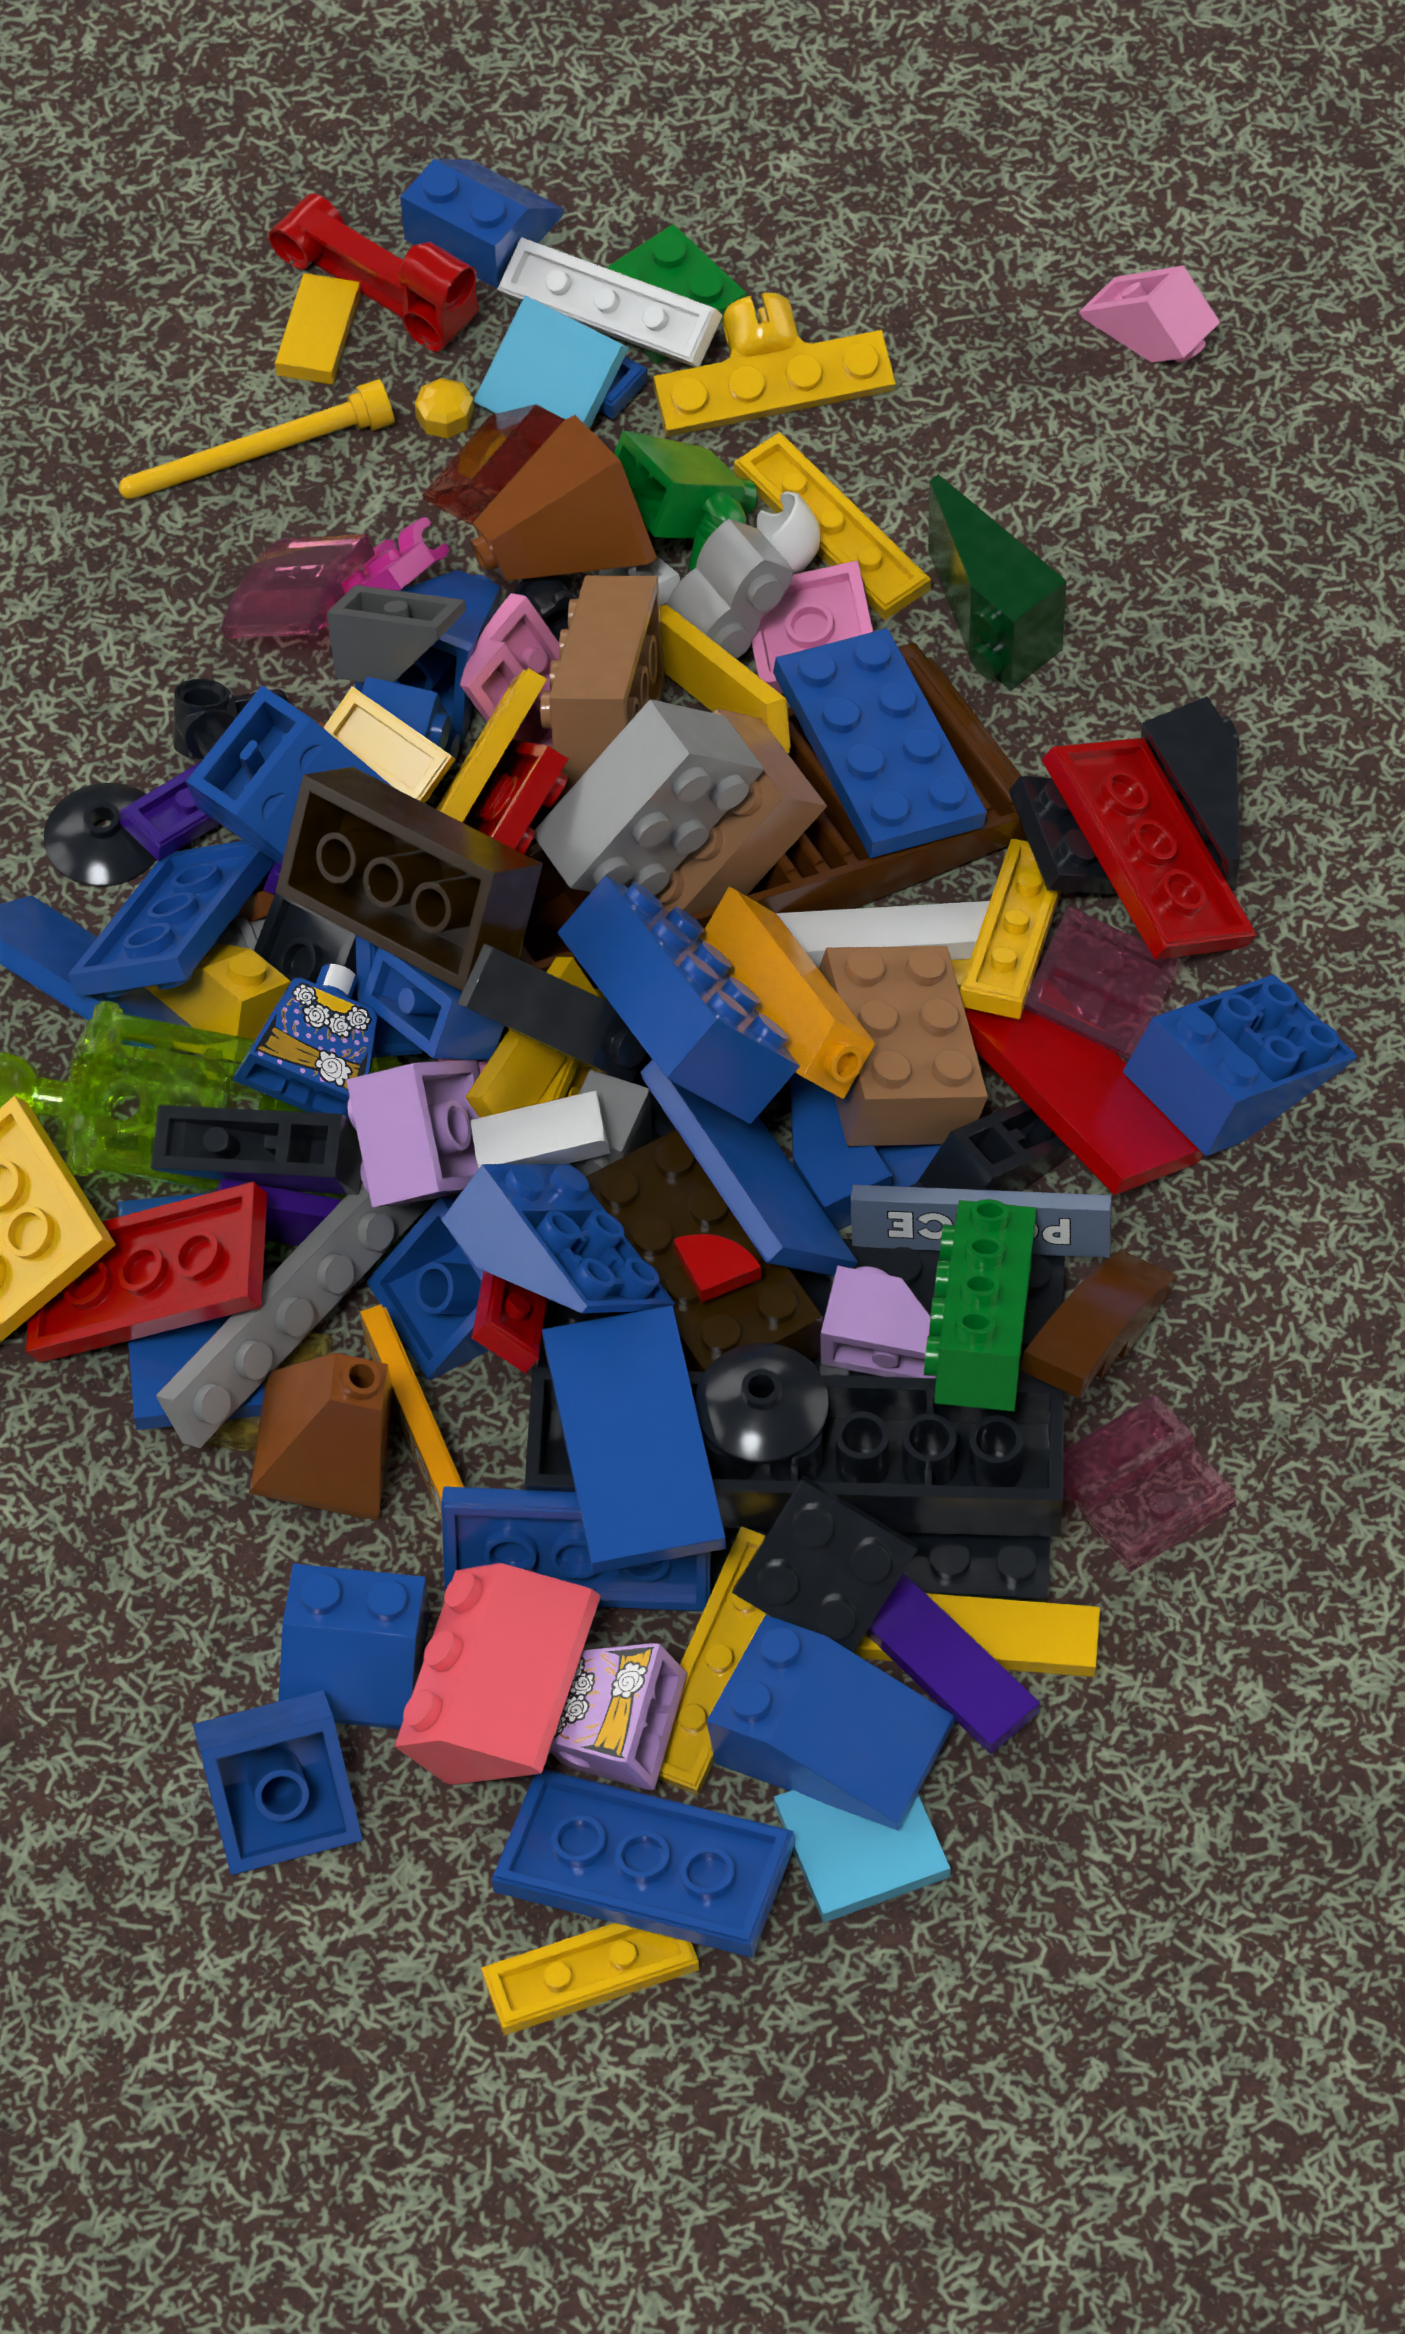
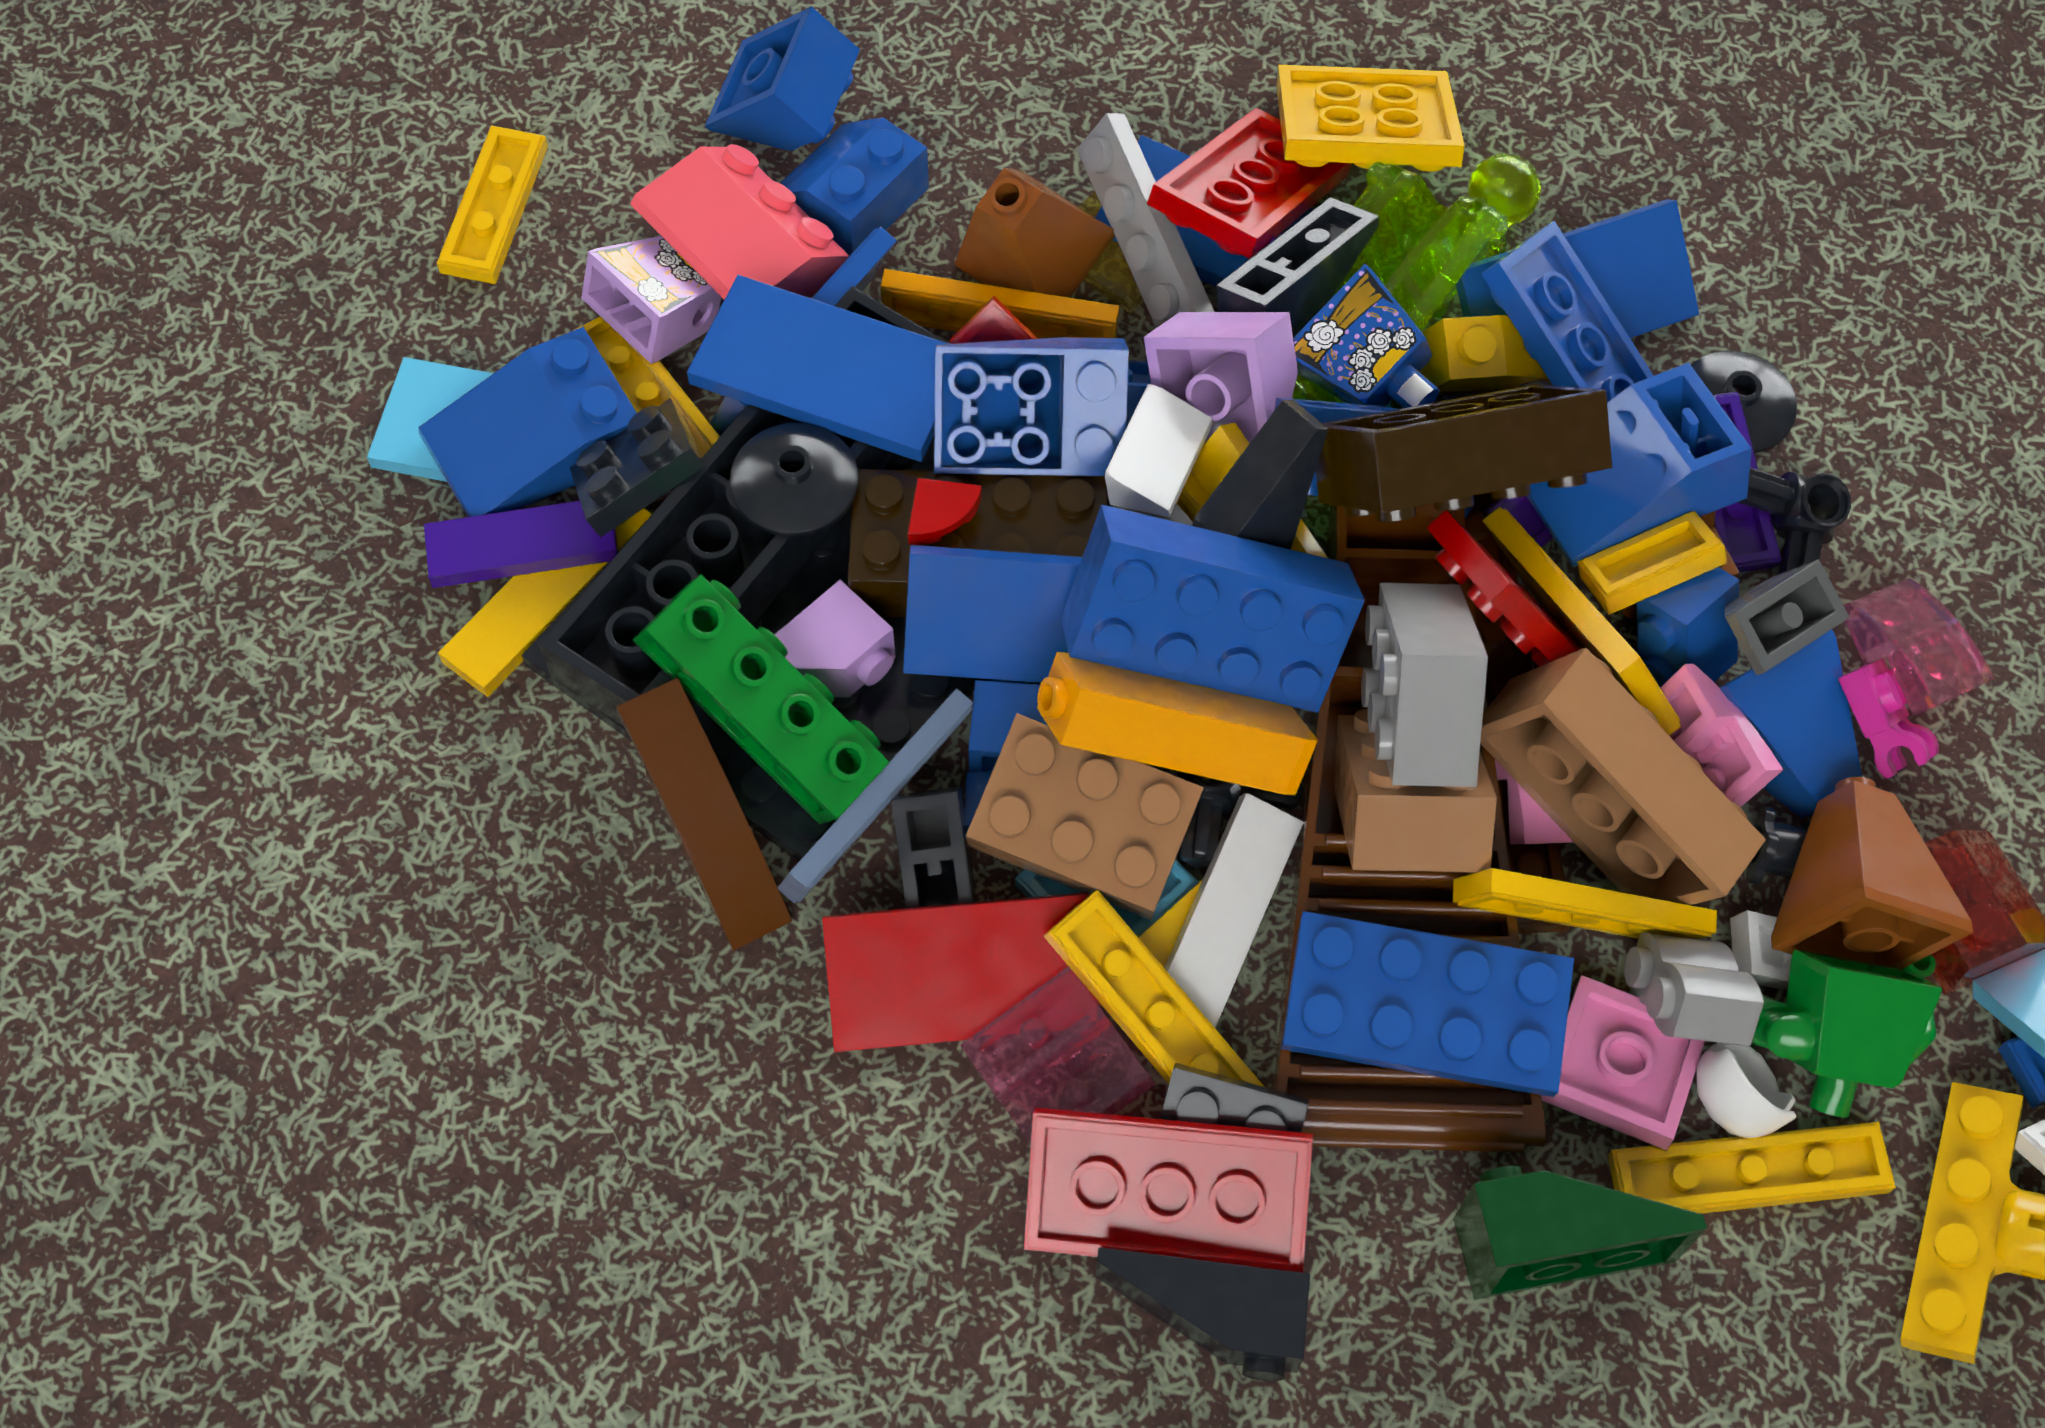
camera: 120 degrees right, 5 degrees up
(644, 1862) = (523, 267): blue tile -> none
(1144, 1483) = (567, 795): clear pink slope -> none
(1235, 1061) = (898, 1141): blue slope -> none

